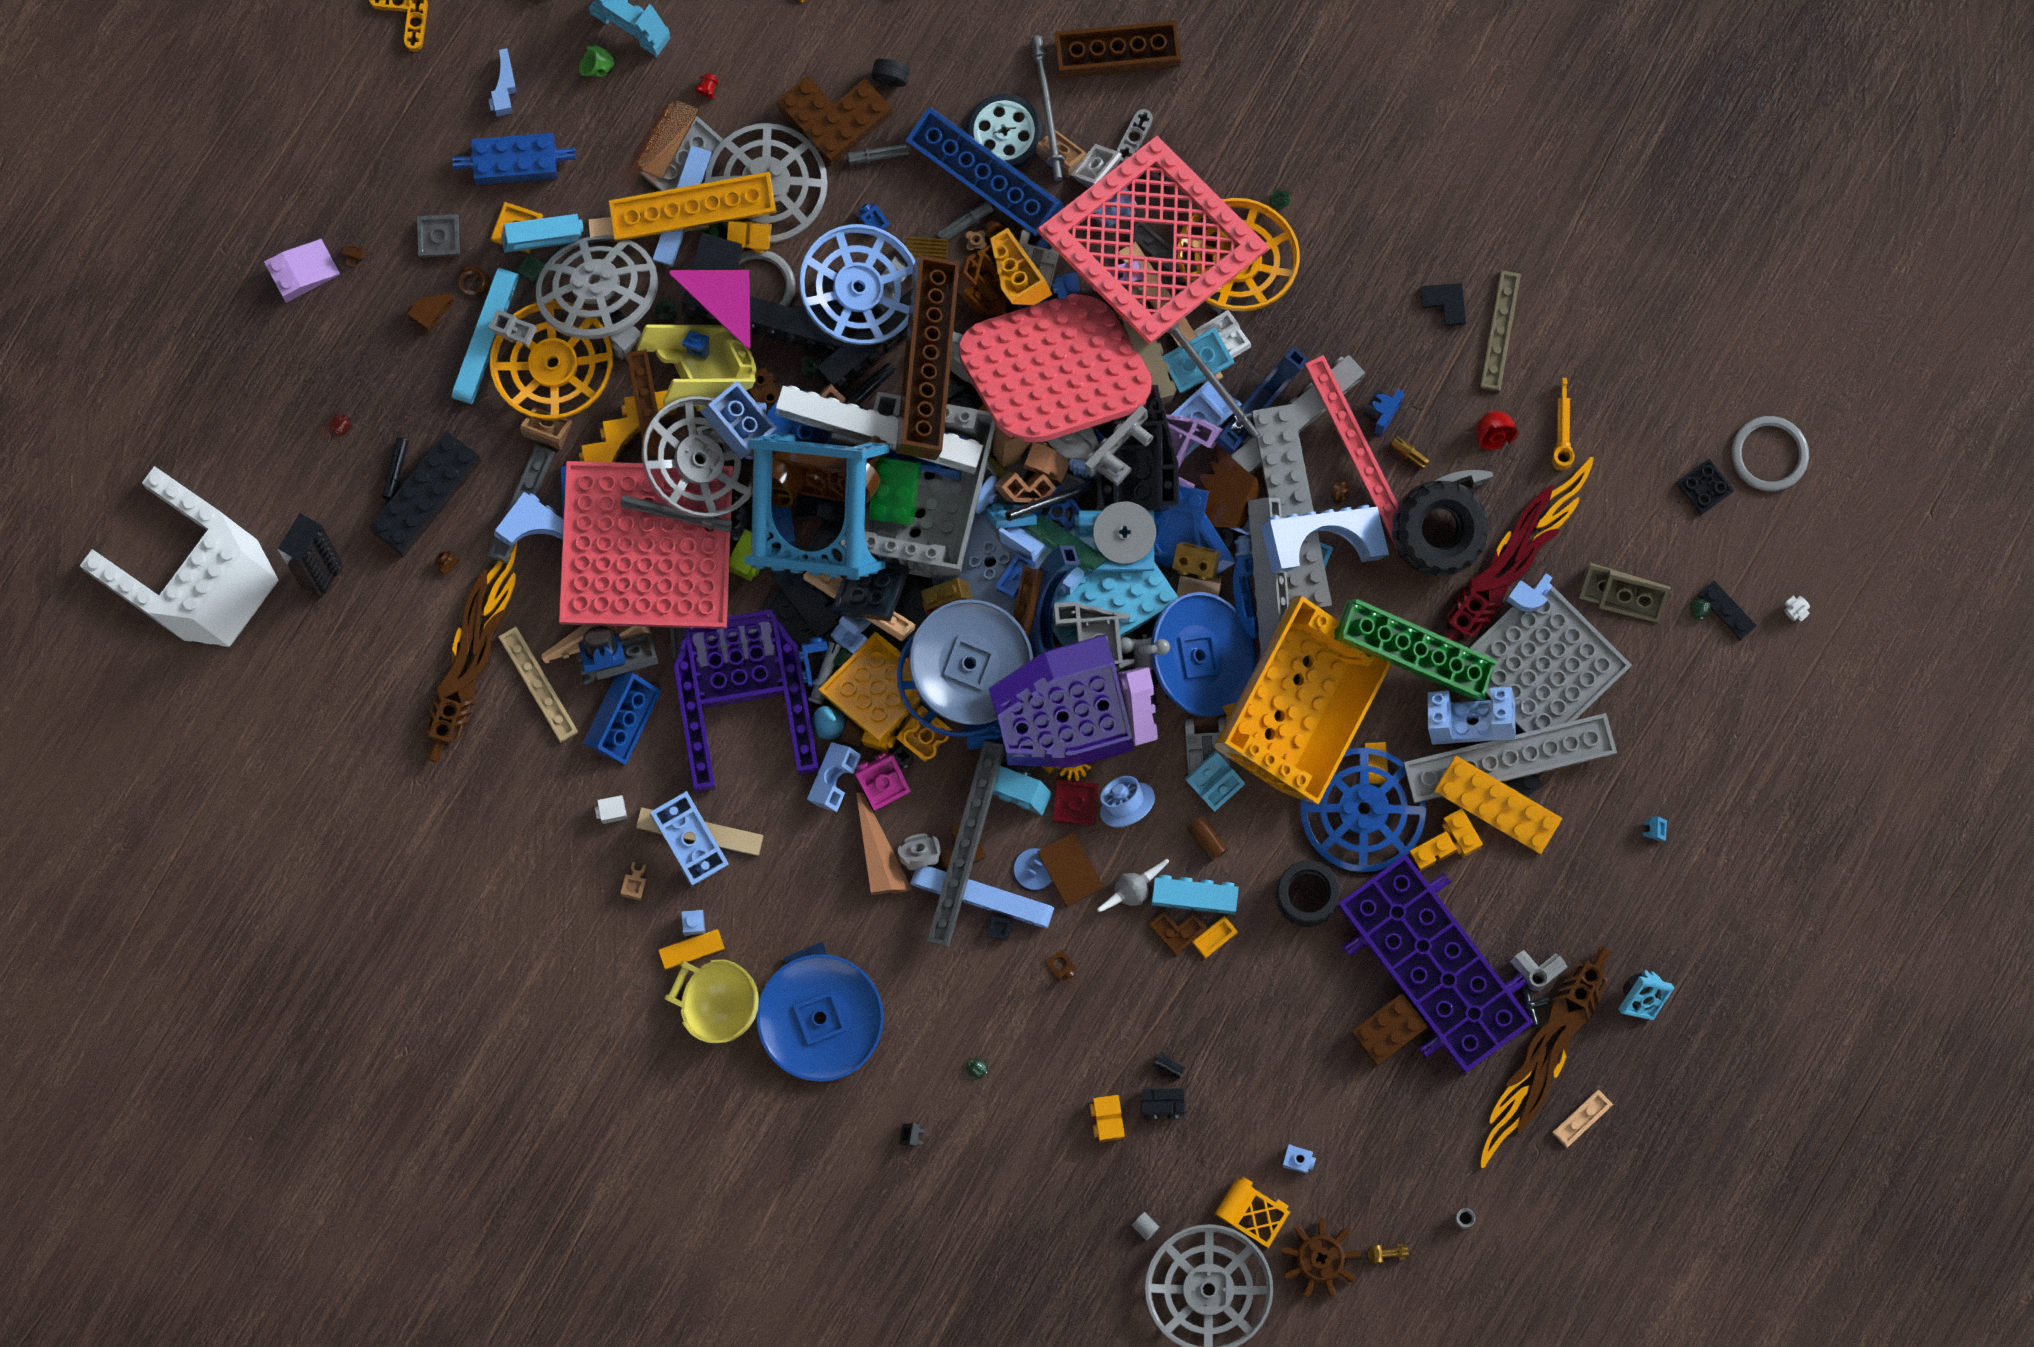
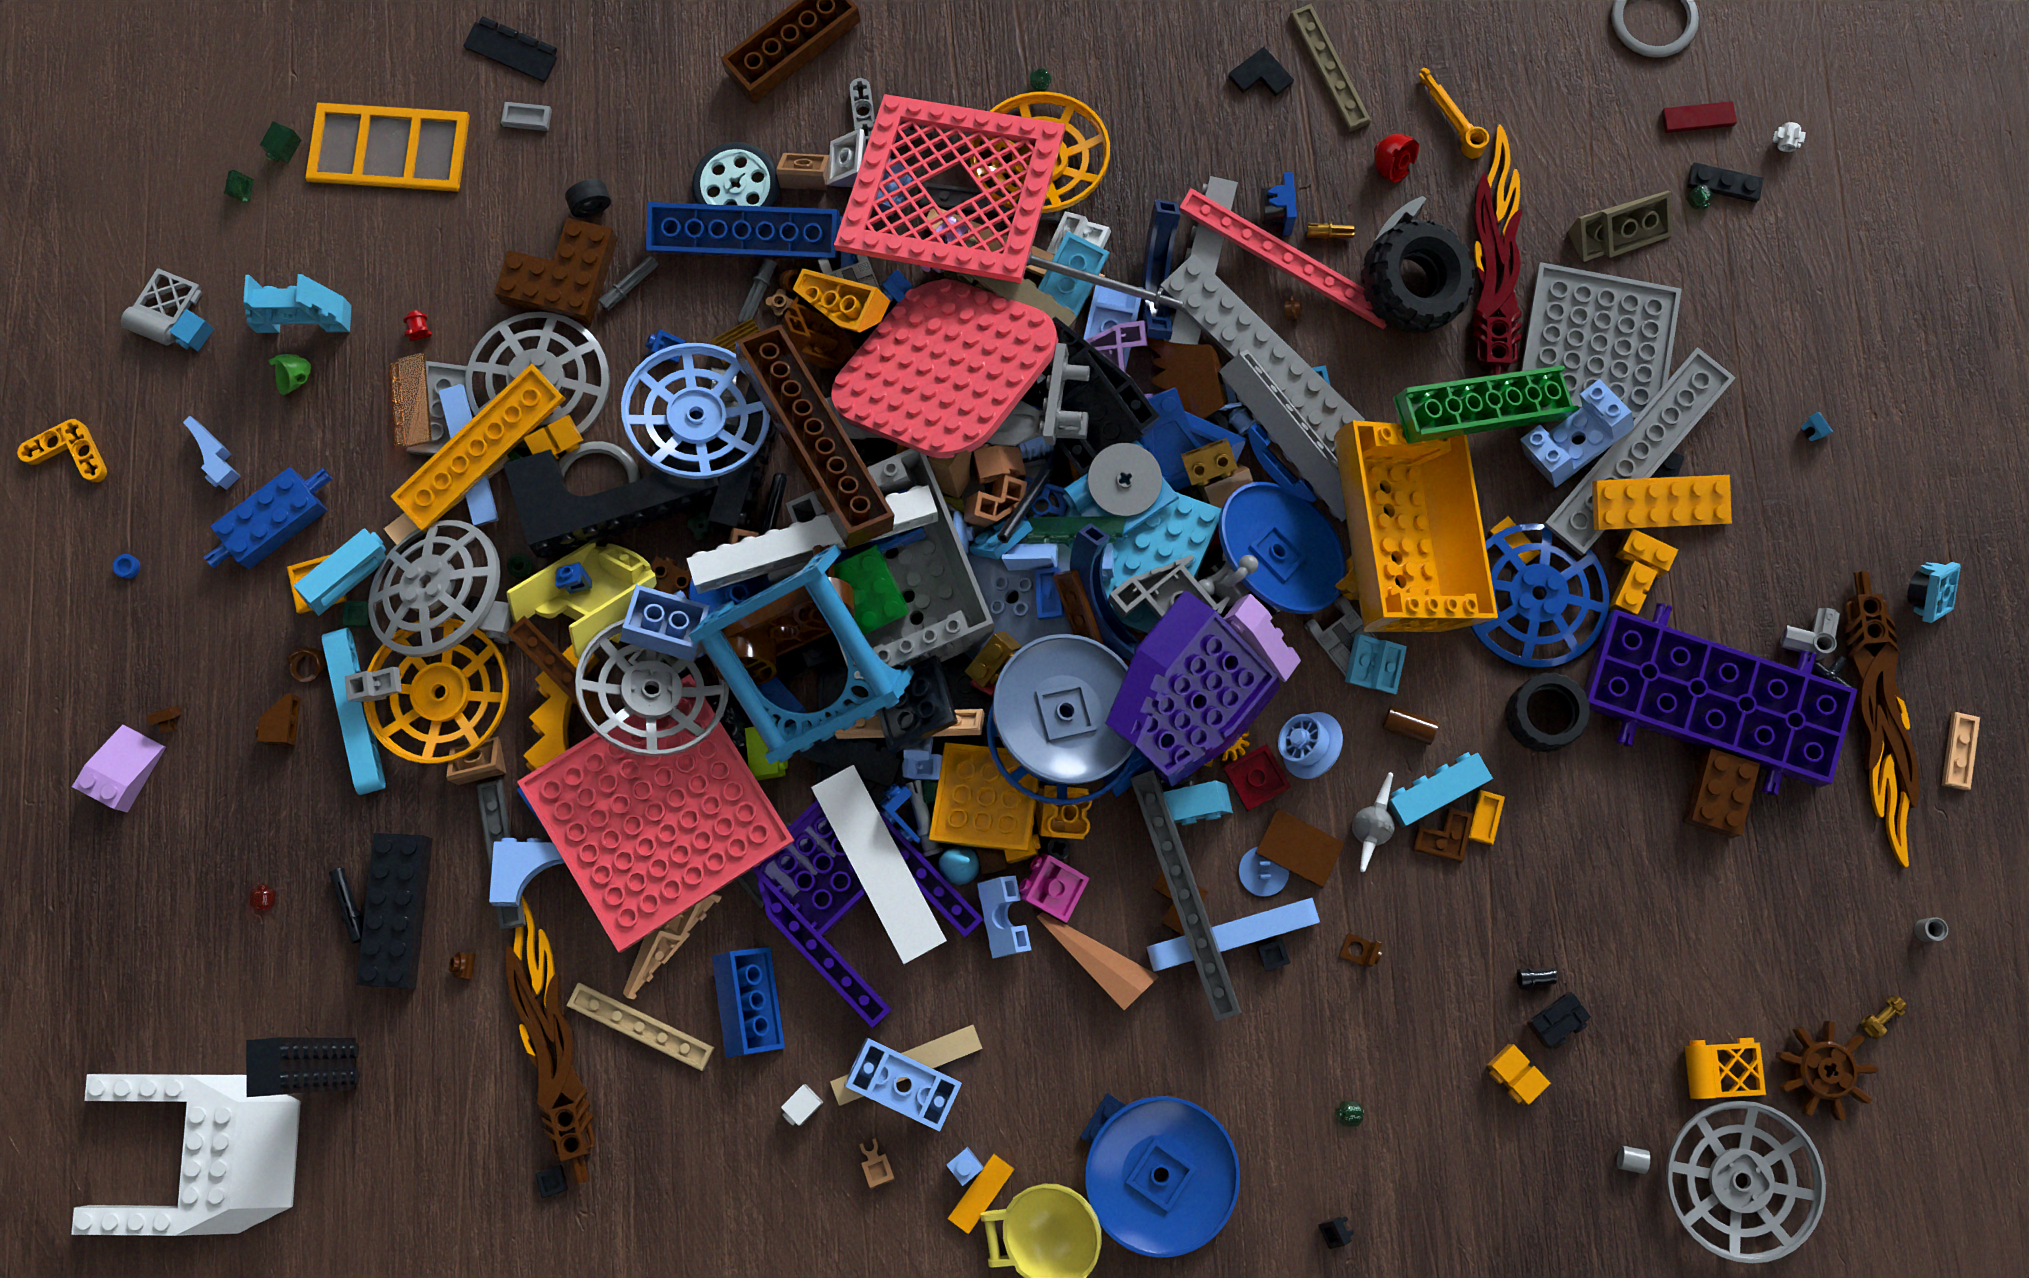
camera: 30 degrees left, 0 degrees up
(393, 126) = (126, 566): none -> blue tile
(411, 747) = (551, 1181): none -> black tile
(438, 236) = (241, 643): flat silver plate -> none
(598, 648) = (676, 947): piece -> none
(638, 653) = (703, 945): dark grey tile -> none
(671, 513) = (660, 762): dark grey axle -> none
(723, 295) = (565, 511): dark pink tile -> none
(773, 682) = (878, 864): none -> white sticker
(928, 855) = (1145, 945): light grey plate -> none
(1039, 56) = (721, 94): flat silver bar -> none
(1291, 1163) = (1721, 984): light blue brick -> none
(1358, 526) = (1284, 376): light blue arch -> none
(1530, 599) = (1543, 289): light blue brick -> none
(1705, 486) = (1619, 85): black tile -> none
(1745, 549) = (1699, 117): none -> dark red tile

